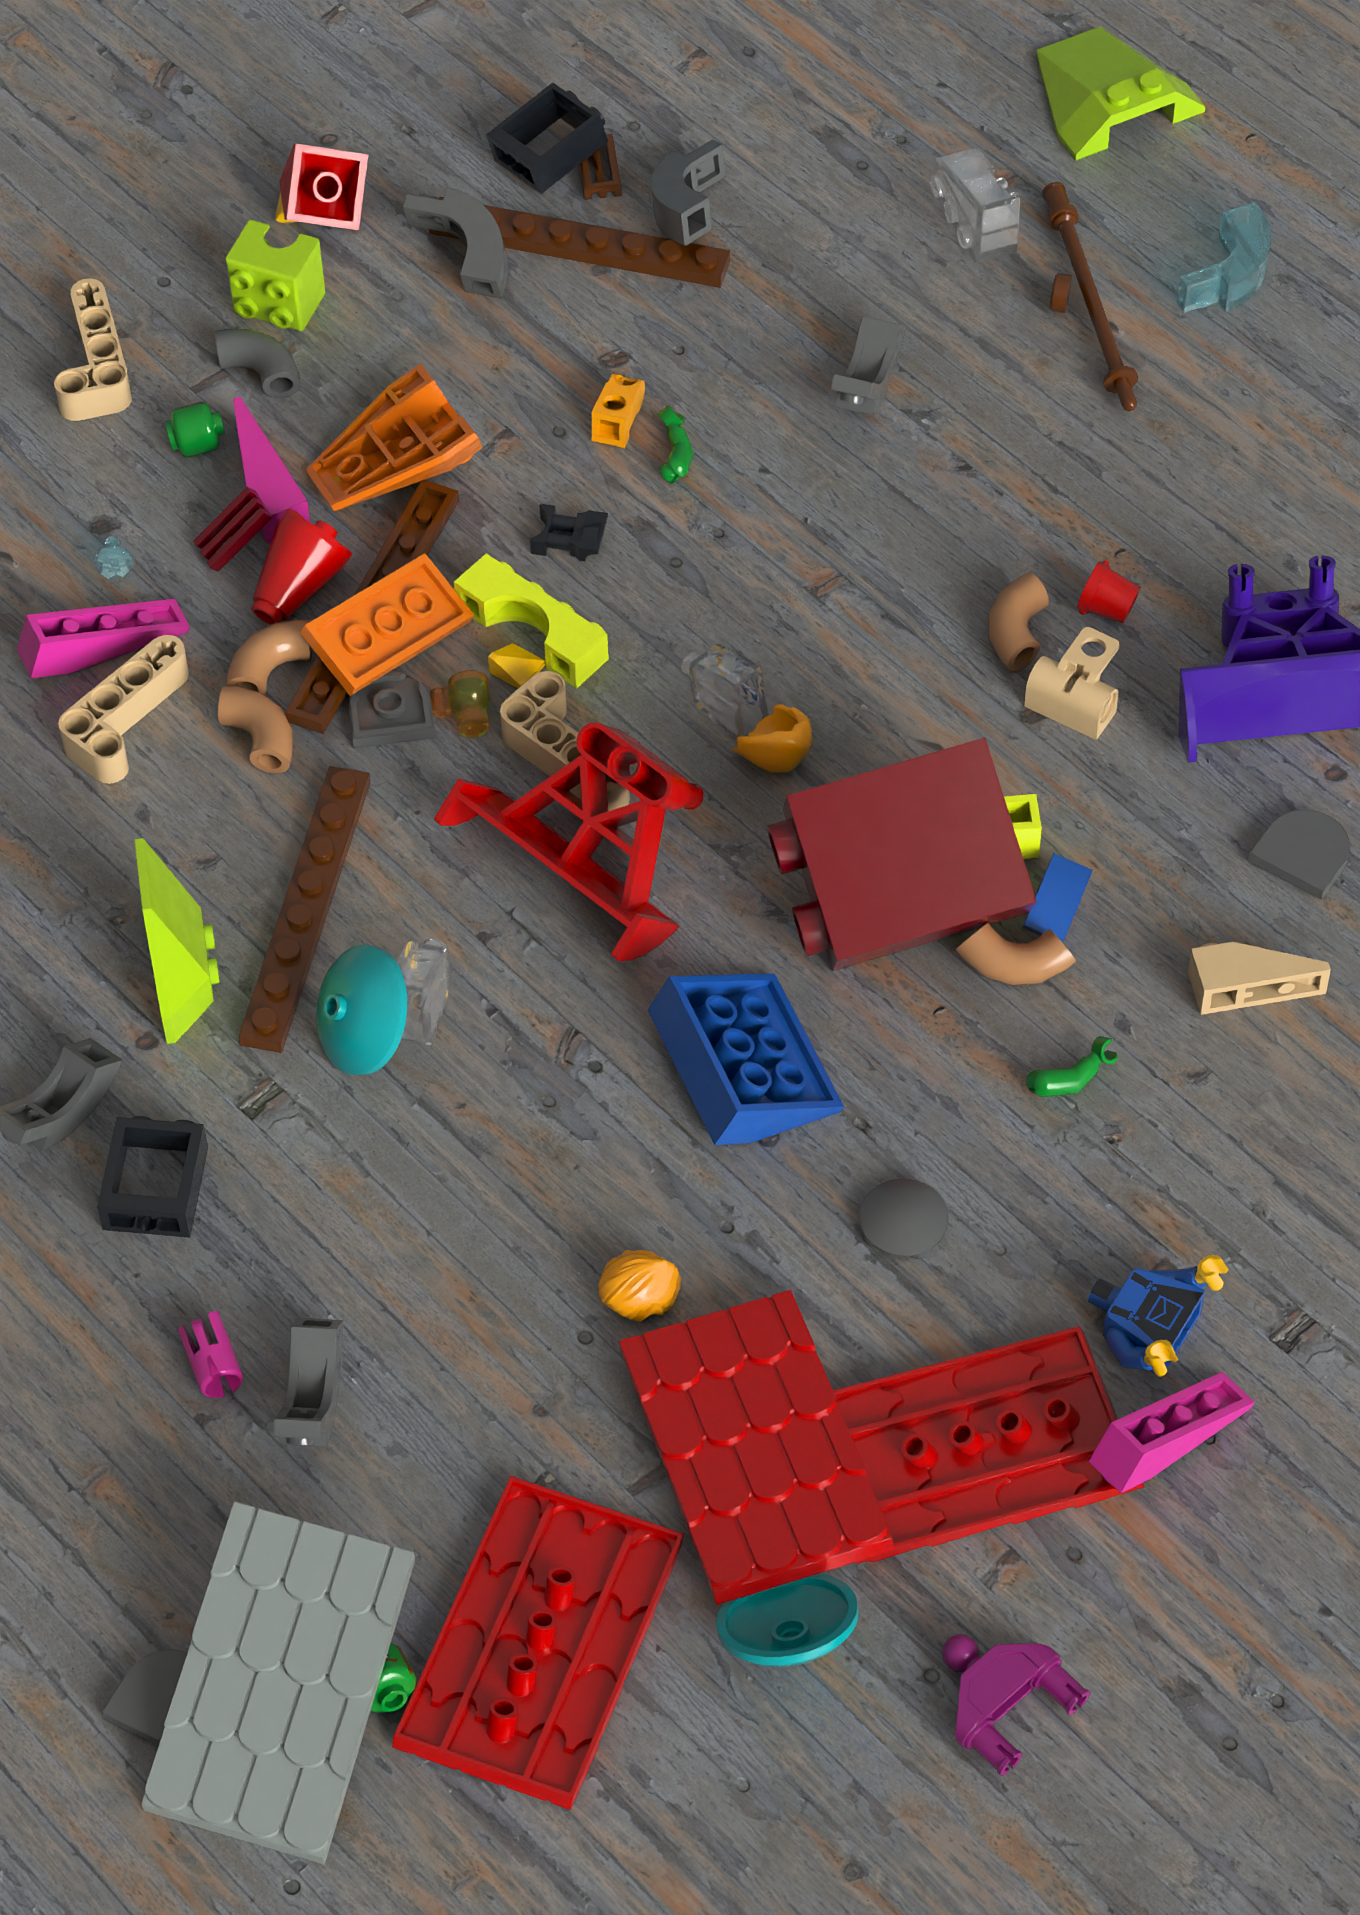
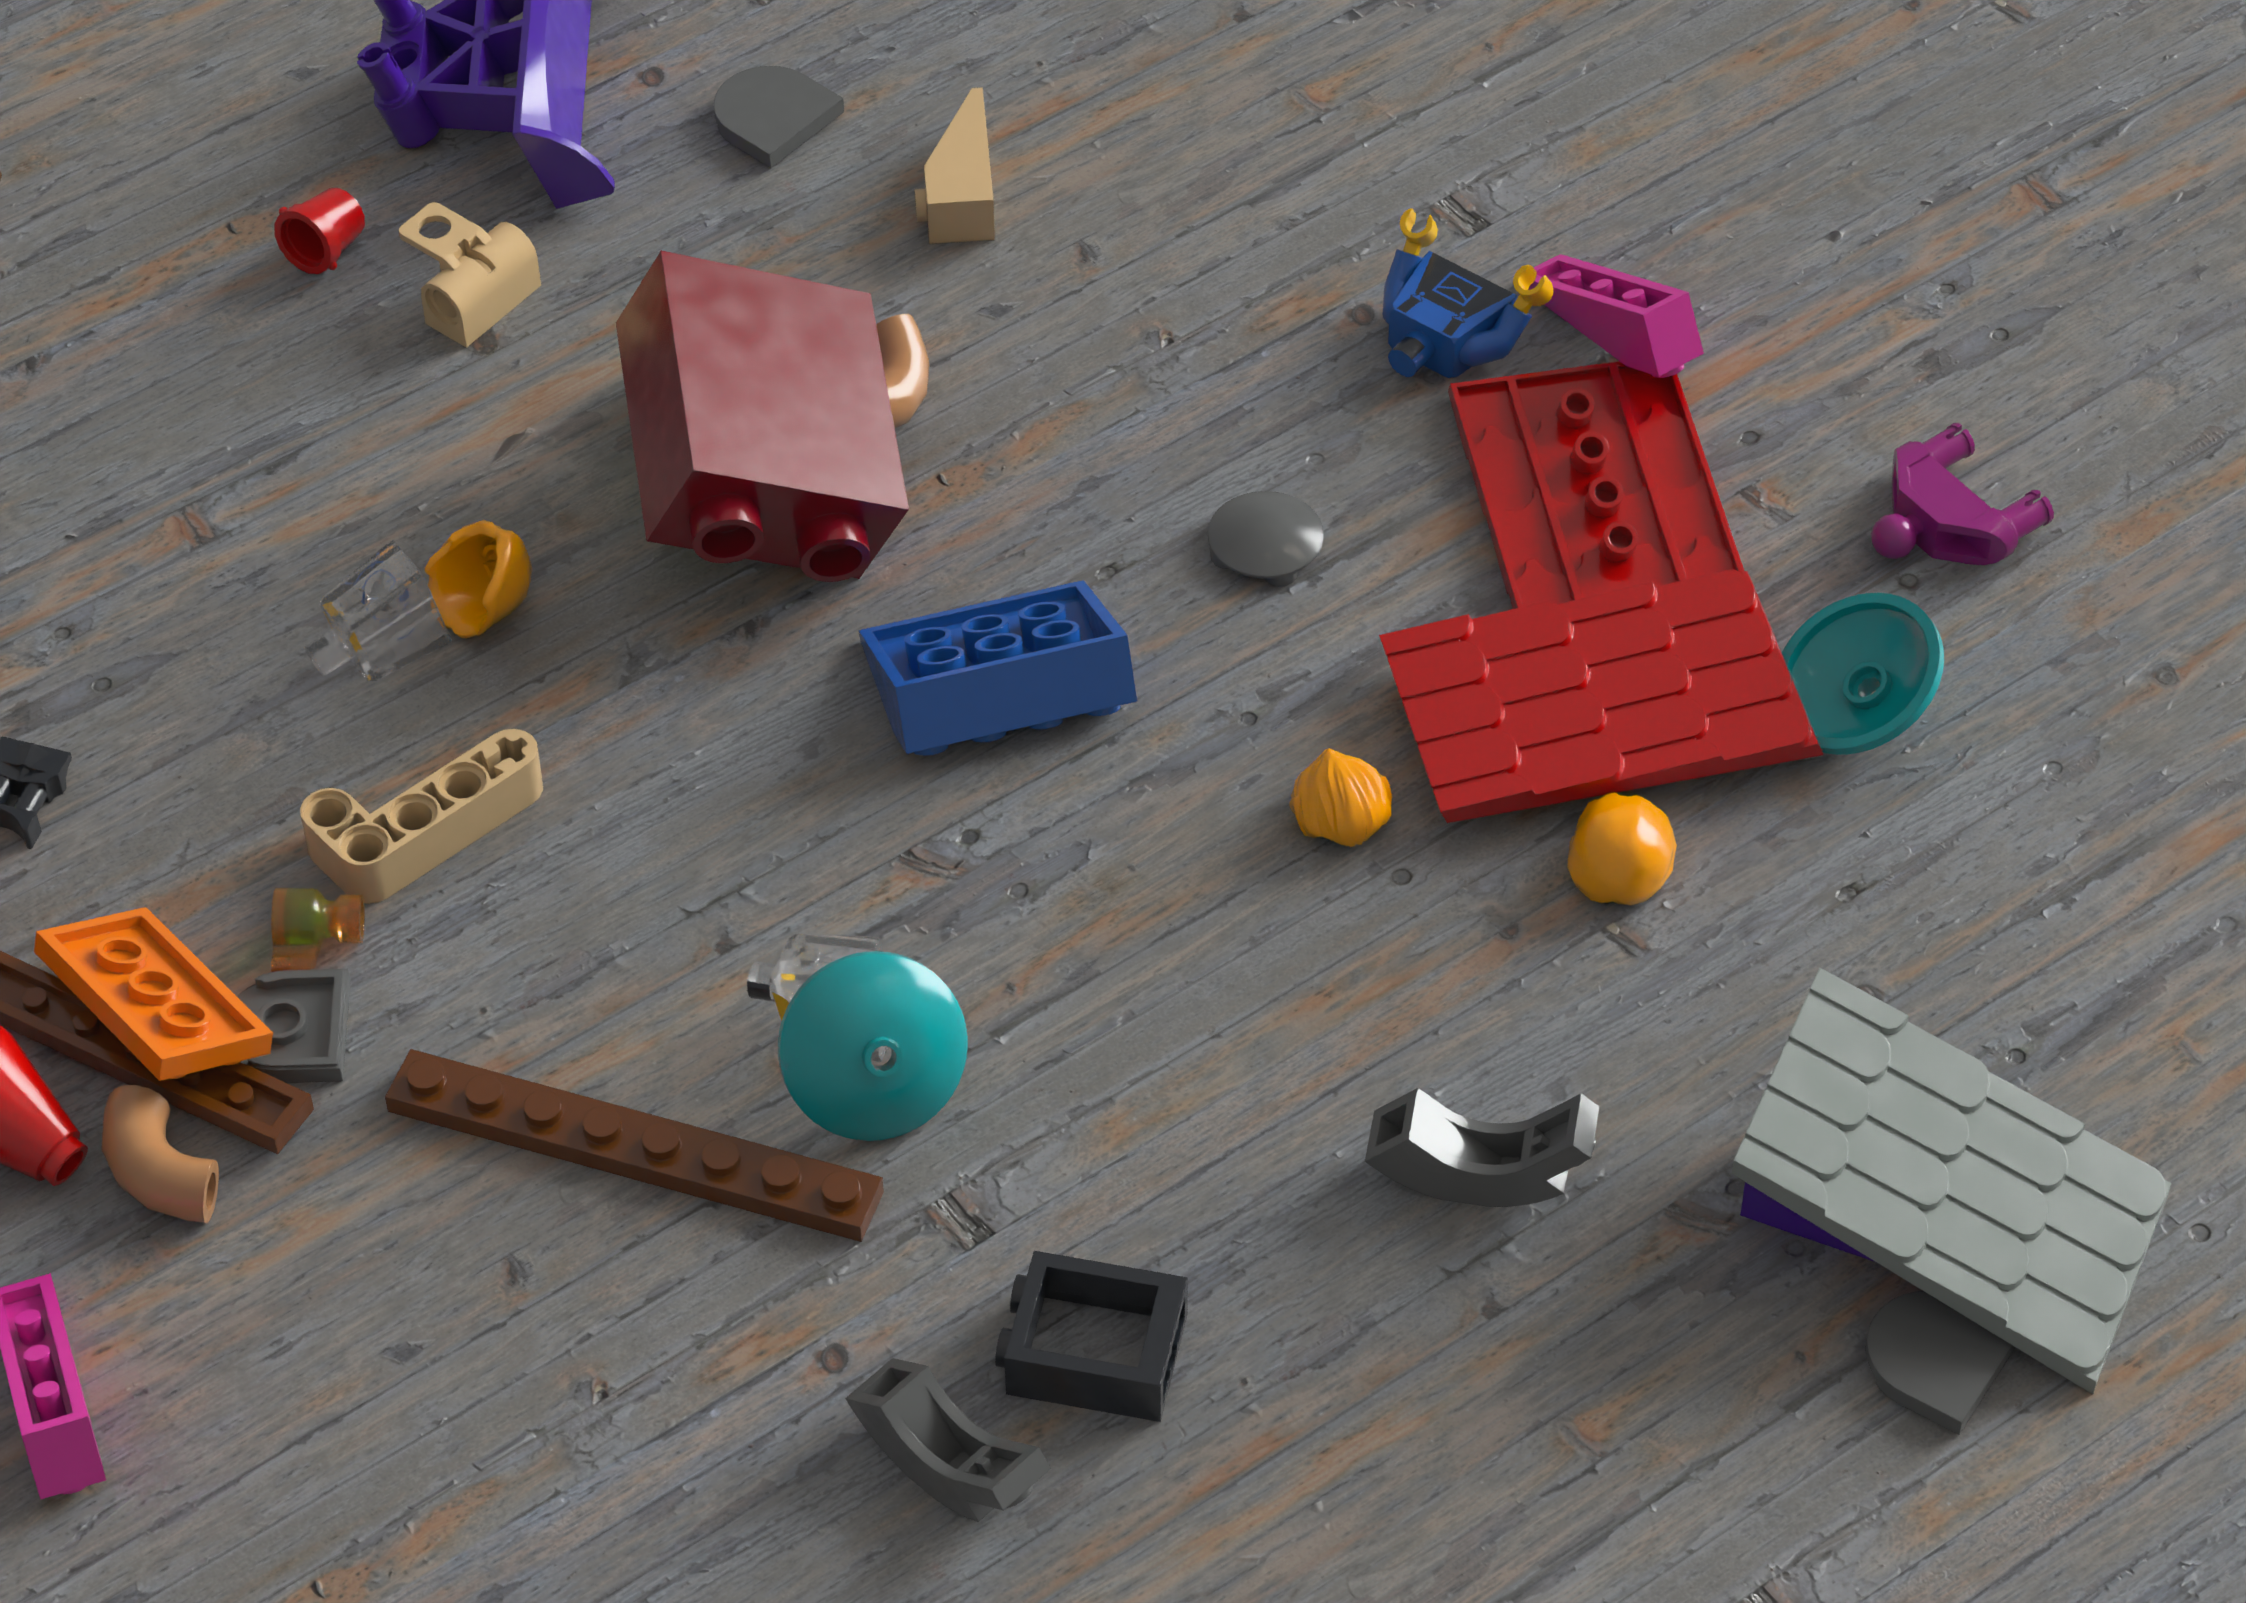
camera: 85 degrees left, 5 degrees down
(95, 723) = (195, 1346): tan beam -> none
(176, 944) = (697, 1243): lime wedge -> none
(212, 1359) = (1404, 1276): dark pink arm -> none
(265, 724) = (284, 1169): medium nougat cylinder -> none
(500, 595) = (234, 796): neon yellow arch -> none
(514, 665) = (248, 873): yellow slope -> none
(539, 1642) = (1780, 892): red piece -> none
(602, 752) = (571, 666): red piece -> none
(607, 1470) = (1621, 850): none -> light orange hair
(1010, 620) = (334, 329): medium nougat cylinder -> none
(1071, 1080) = (1070, 343): green arm -> none

